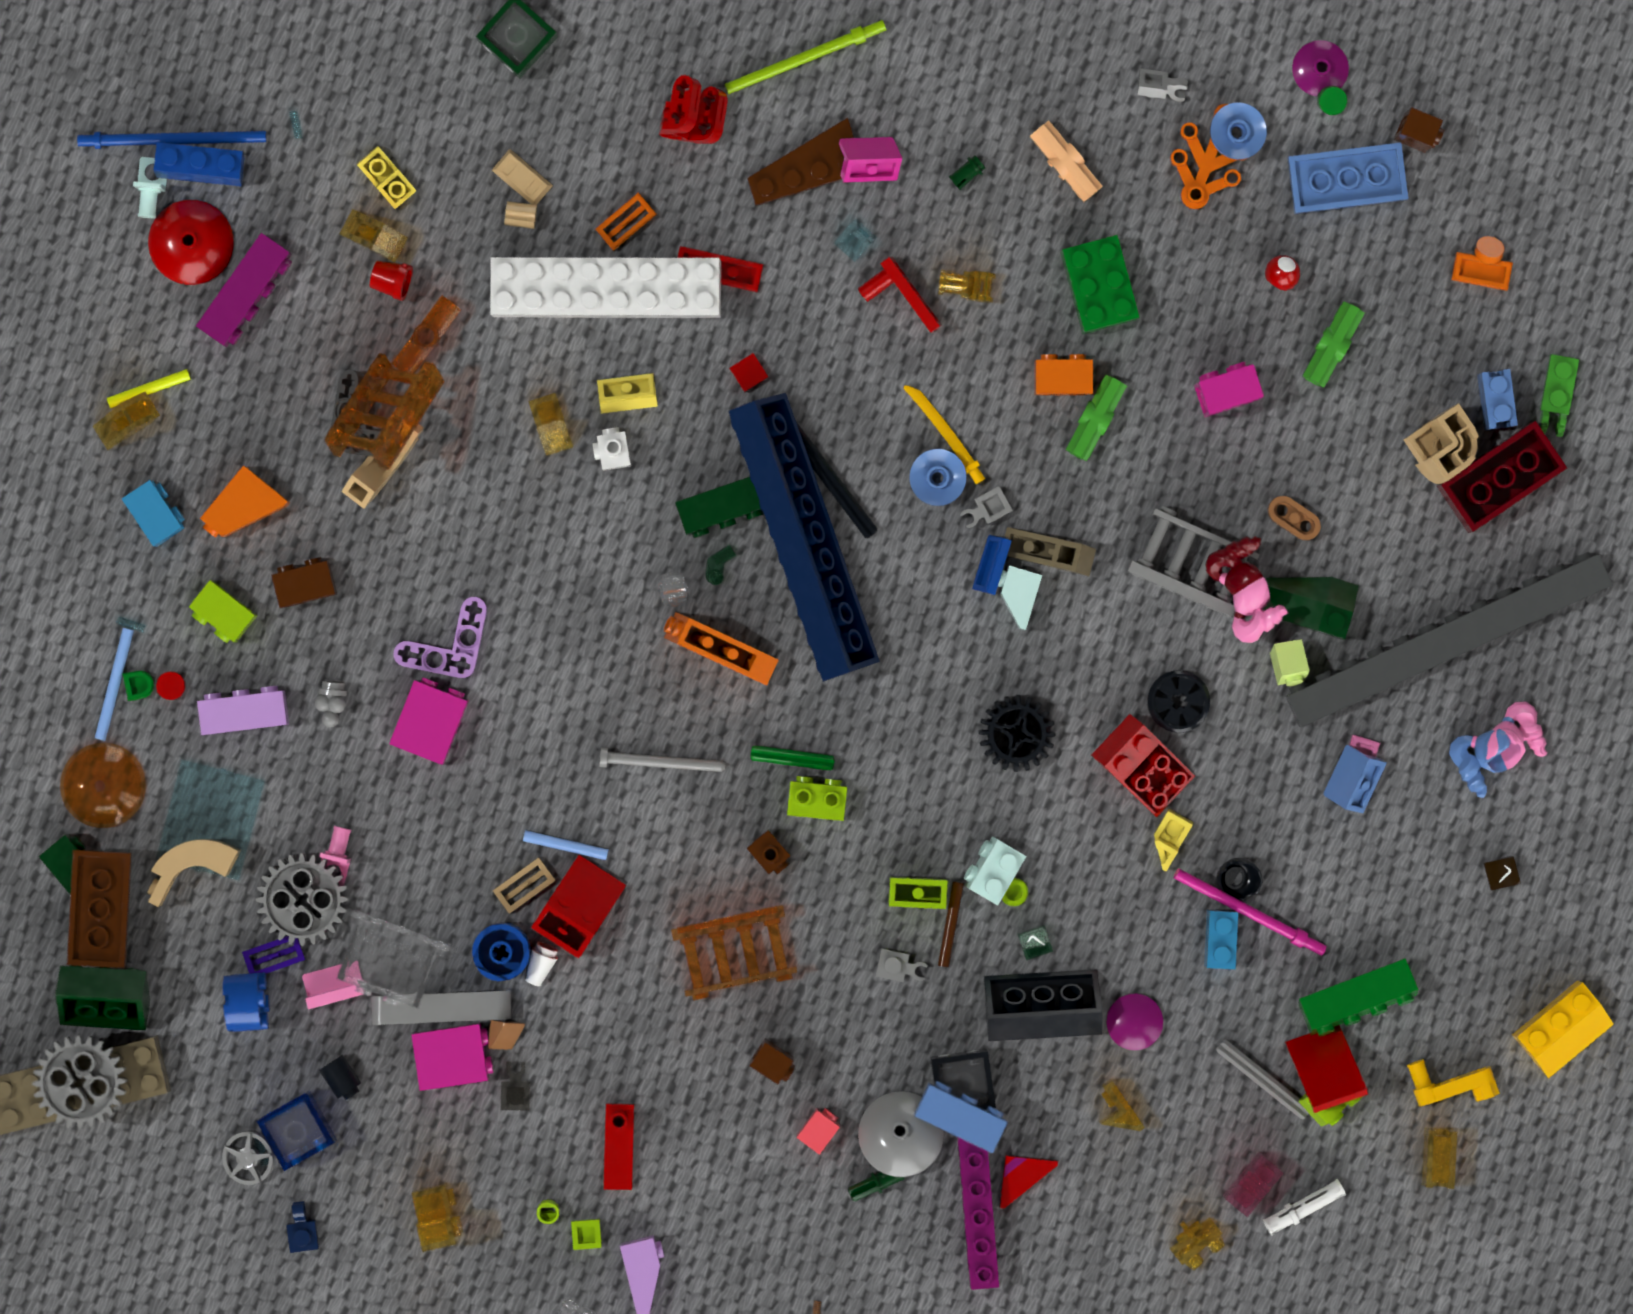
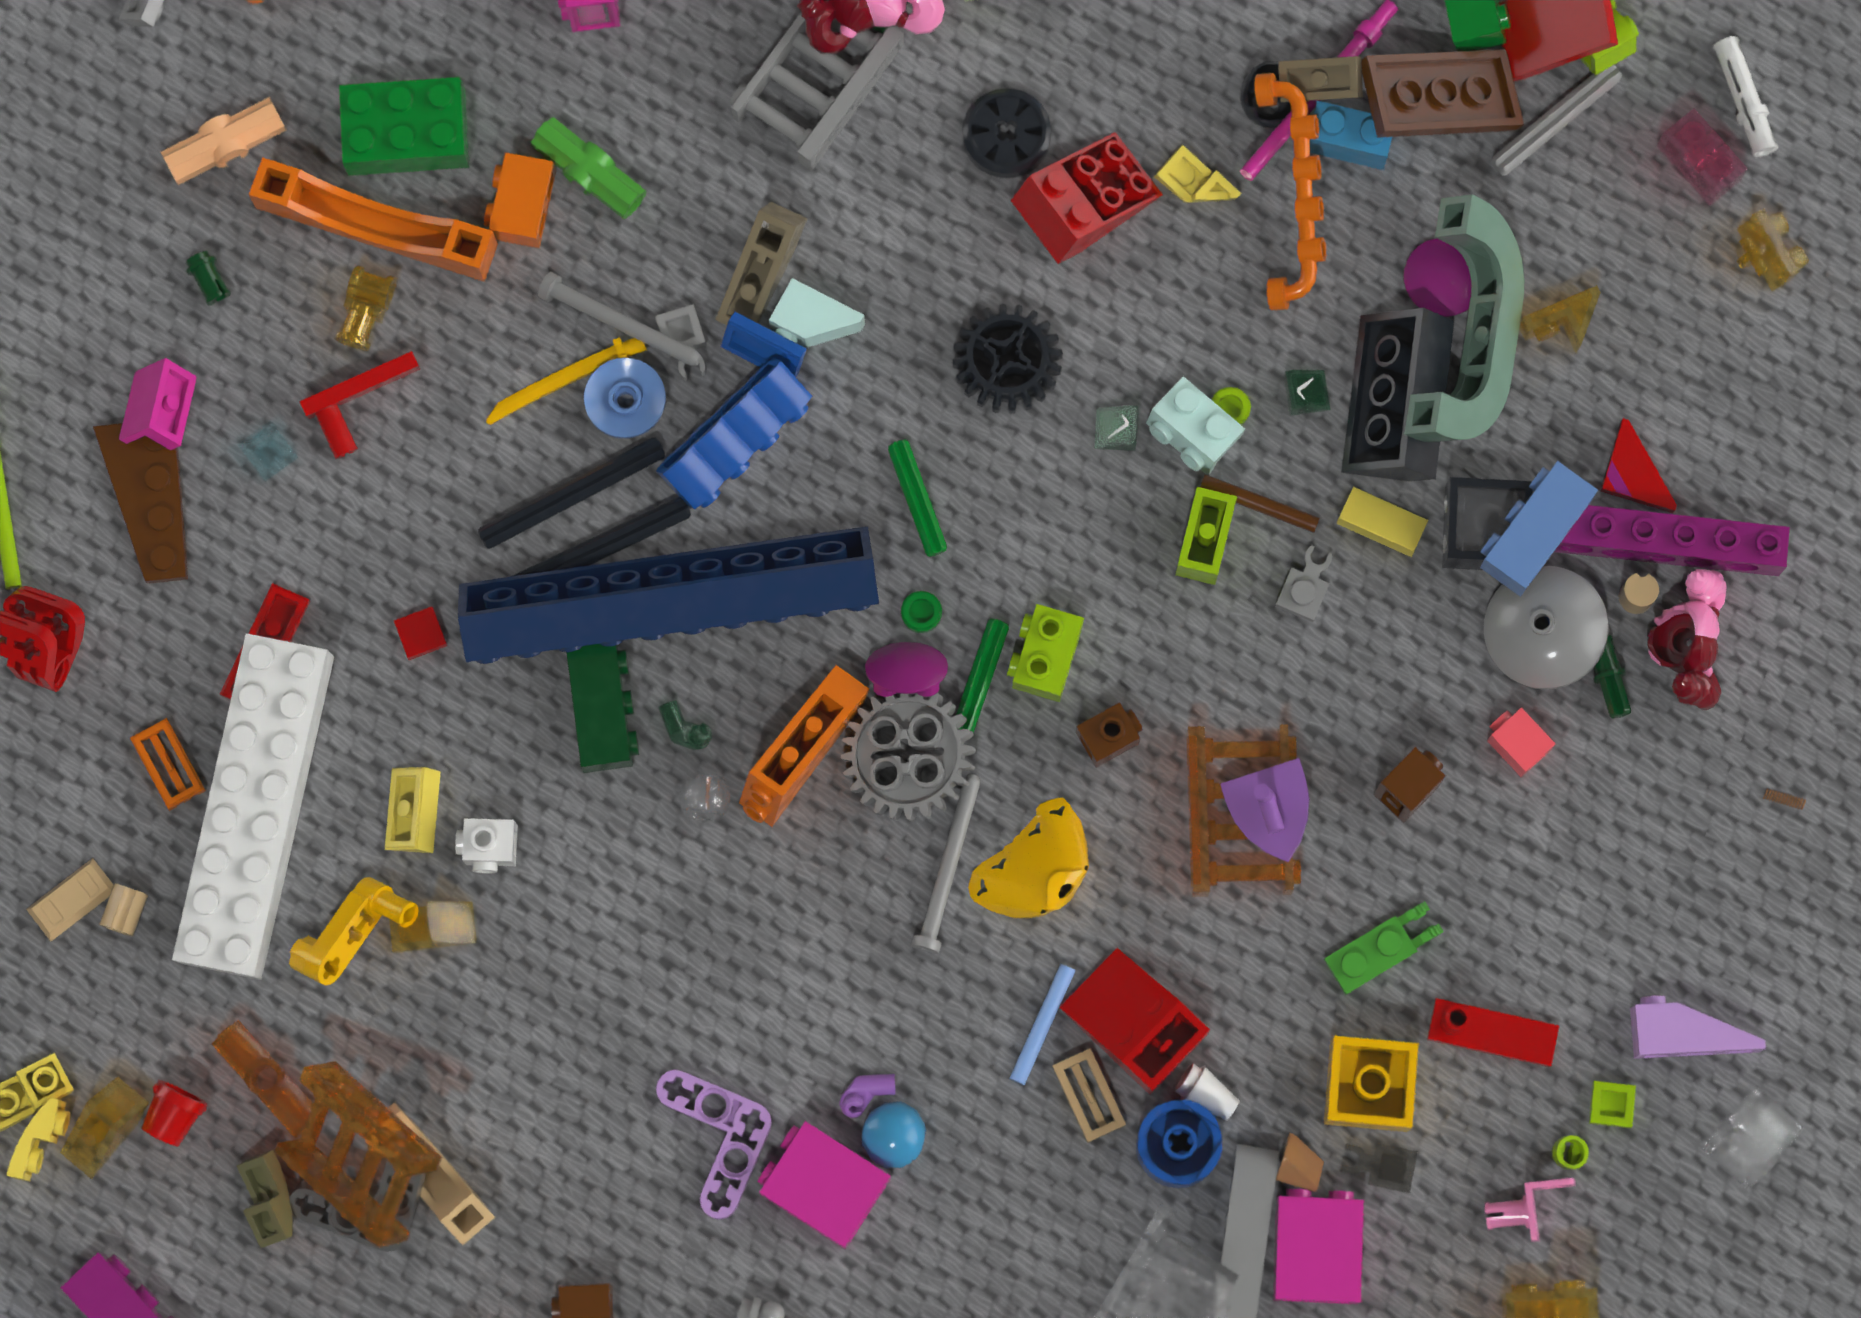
camera: 75 degrees left, 10 degrees down
(341, 358) = (271, 1212): none -> olive slope
(364, 196) = (45, 1126): none -> light yellow slope
(472, 760) = (893, 1134): none -> dark azure hair
(498, 734) = (862, 1090): none -> medium lavender arm
(503, 1187) = (1522, 1211): none -> bright pink bracket
(515, 359) = (330, 954): none -> yellow beam
(566, 1071) = (1371, 1083): none -> yellow brick
(659, 1060) = (1379, 950): none -> bright green hinge
(671, 820) = (1035, 866): none -> yellow piece
(738, 971) = (1271, 807): none -> medium lavender shield
(753, 714) = (908, 790): none -> light grey gear
(786, 707) = (906, 669): none -> magenta dish
(830, 709) = (921, 612): none -> green tile
(866, 454) = (571, 493): none -> black axle
(896, 1237) = (1696, 622): none -> dark red hair
(908, 690) = (917, 498): none -> green axle
(926, 557) = (734, 433): none -> blue brick
(936, 1193) = (1638, 593): none -> tan piece
(954, 1010) = (1382, 521): none -> light yellow slope
(983, 816) = (1116, 427): none -> clear green slope
(1006, 411) = (552, 288): none -> light grey bar
(1028, 278) = (422, 237): none -> orange arch
(1097, 1060) = (1491, 327): none -> sand green arch
(1186, 913) = (1307, 208): none -> orange bar
(1252, 912) = (1324, 77): none -> dark tan plate
(1261, 997) = (1441, 93): none -> reddish brown plate

